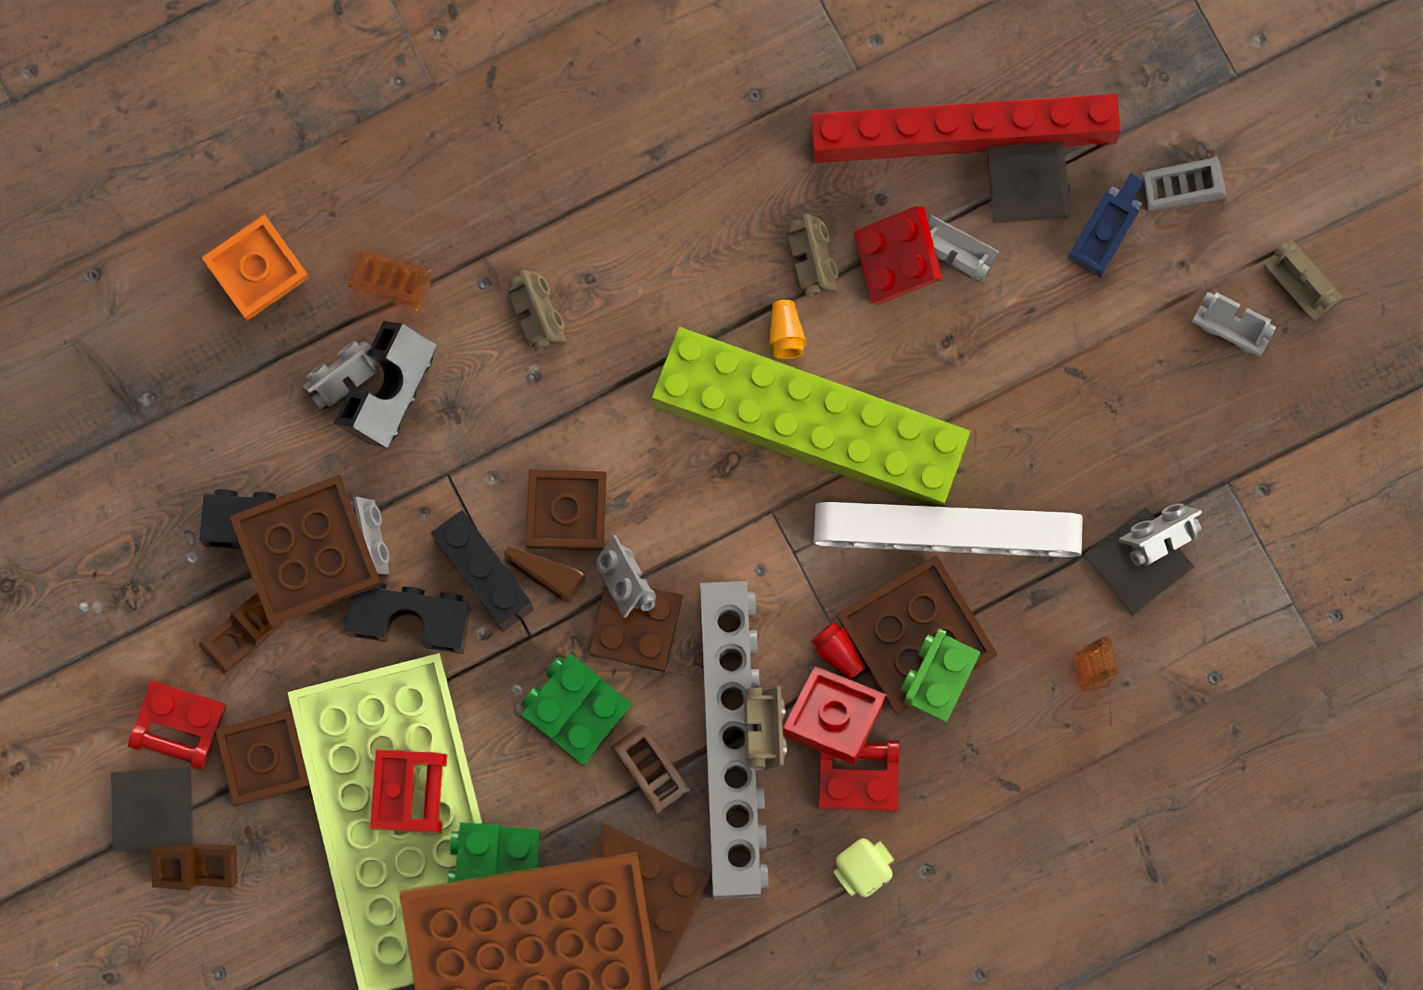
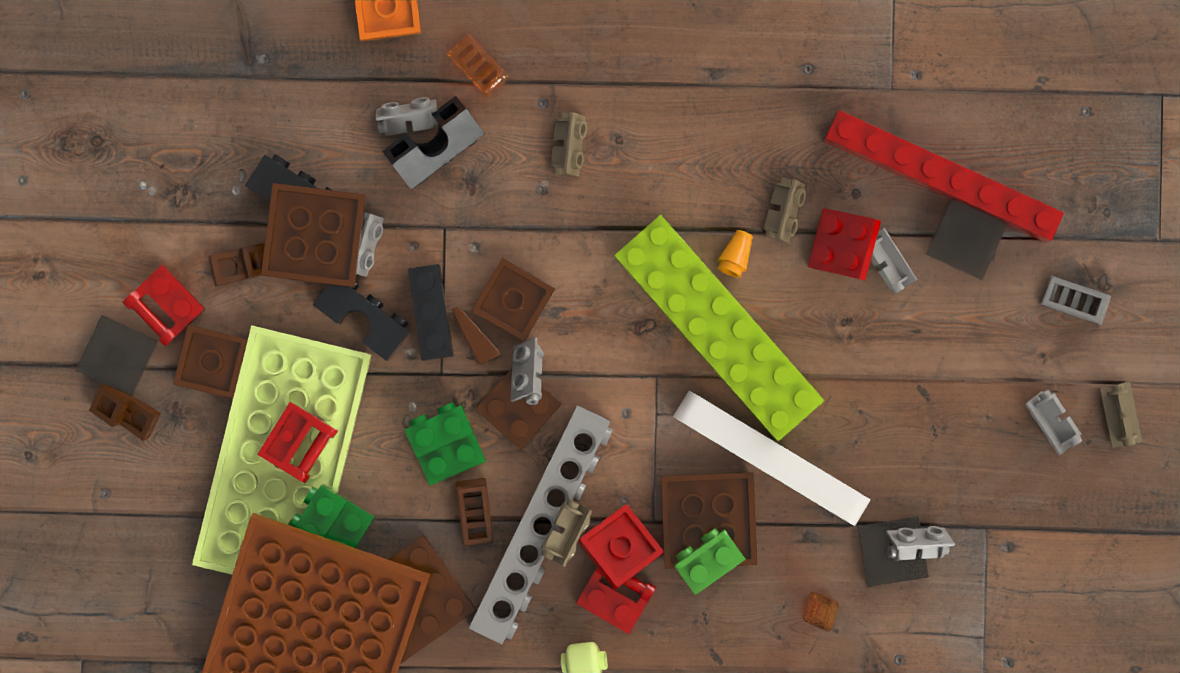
camera: 30 degrees right, 10 degrees up
(838, 650) = (648, 500): red cone -> none
(1107, 227) = (1004, 302): dark blue hinge -> none

